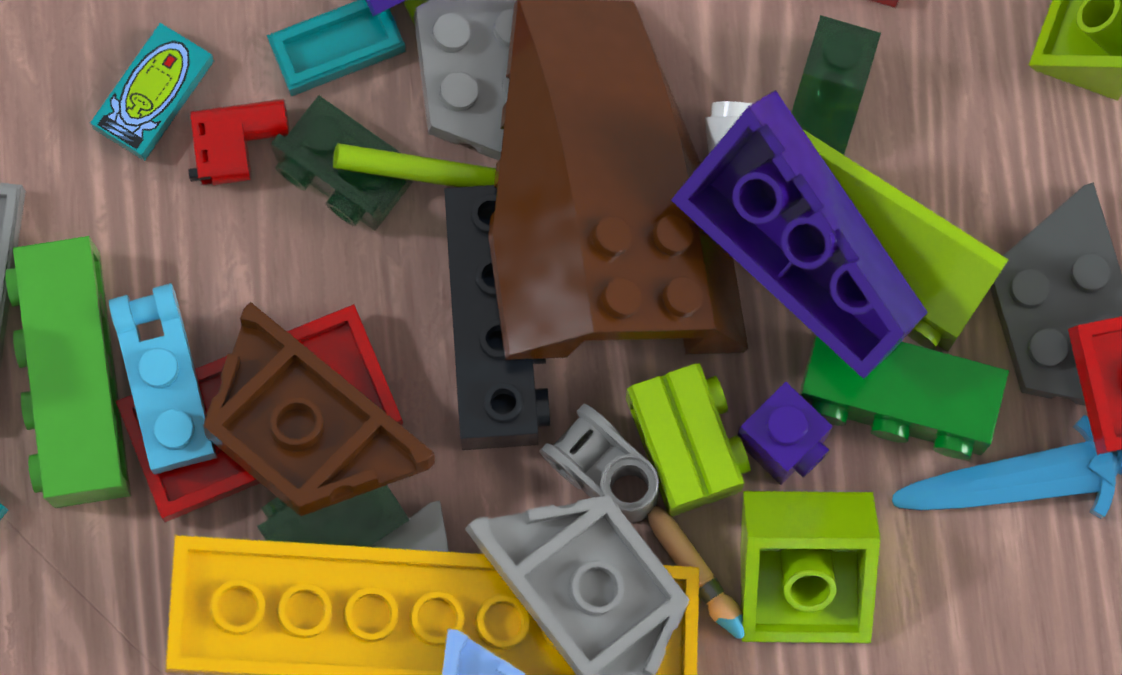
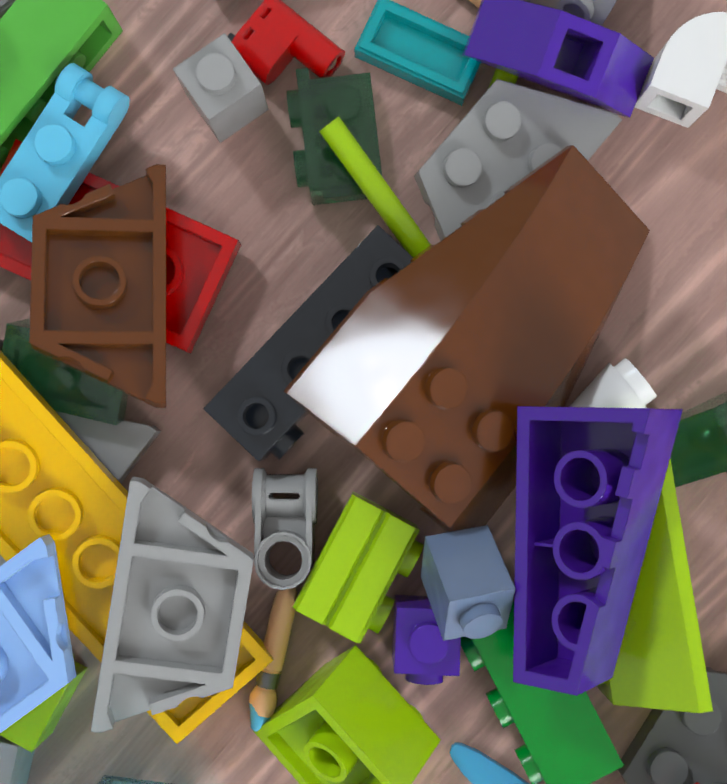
camera: 50 degrees right, 10 degrees up
(228, 212) = (222, 87): none -> light grey brick
(766, 355) = (466, 583): none -> sand blue brick

